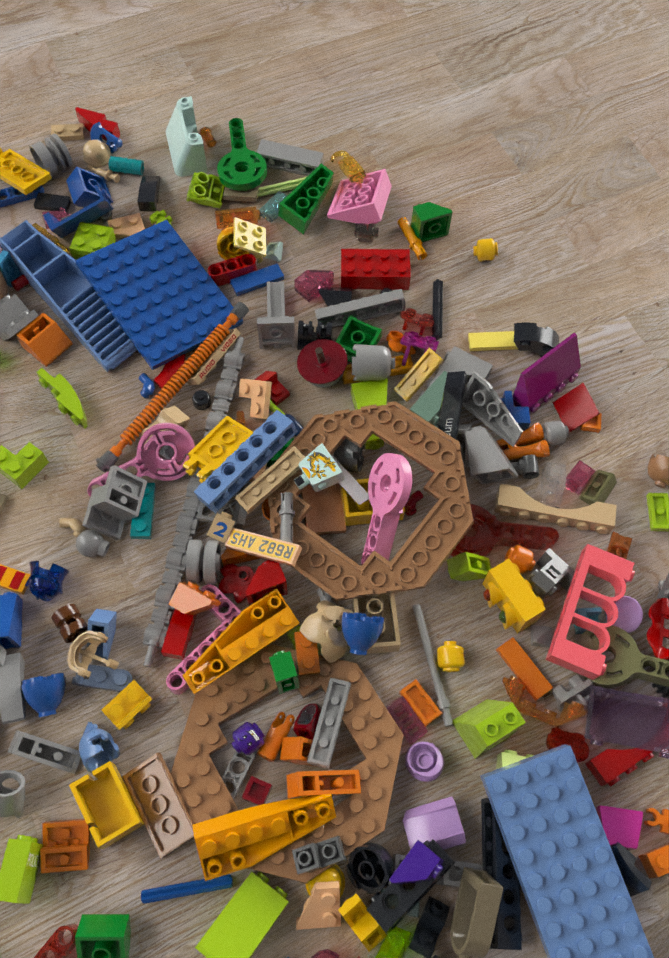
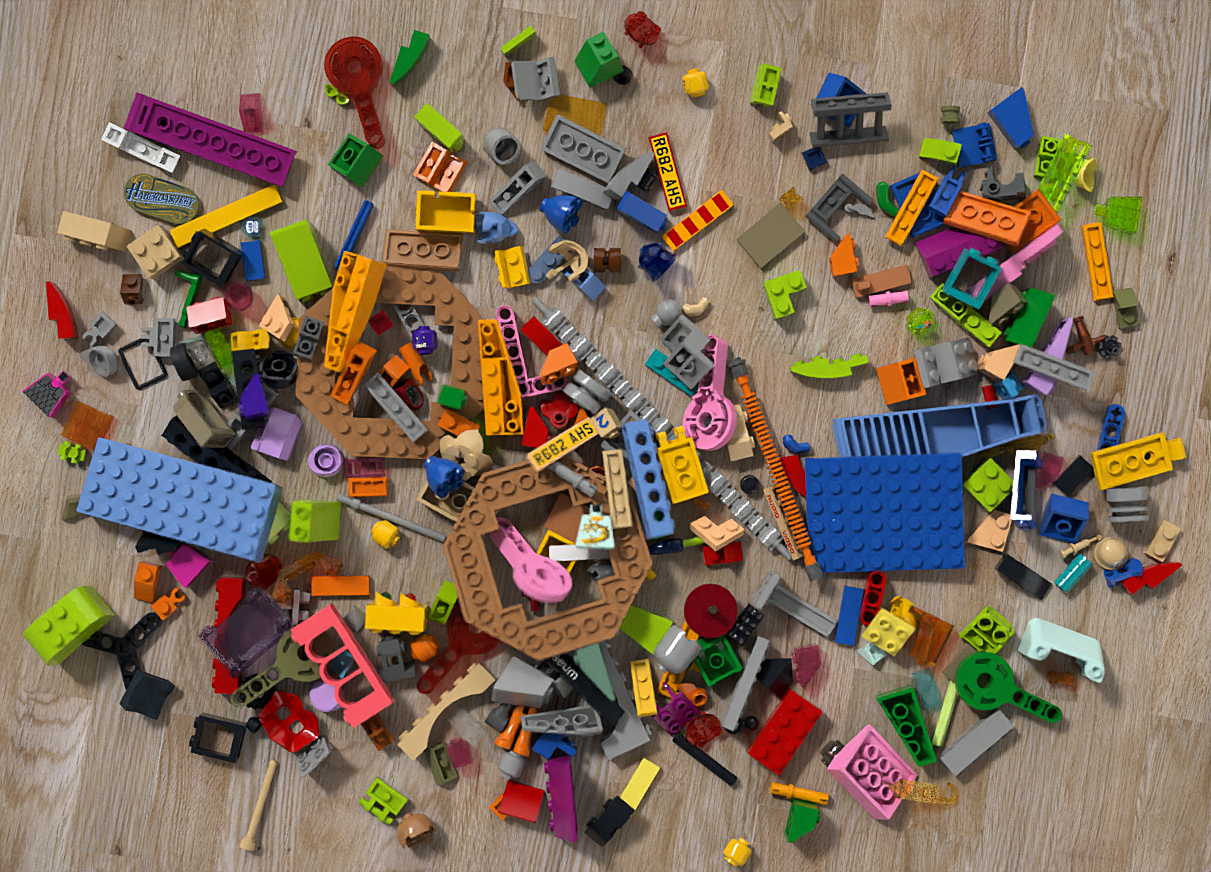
camera: 125 degrees right, 25 degrees up
(158, 217) = (975, 567): lime piece -> none

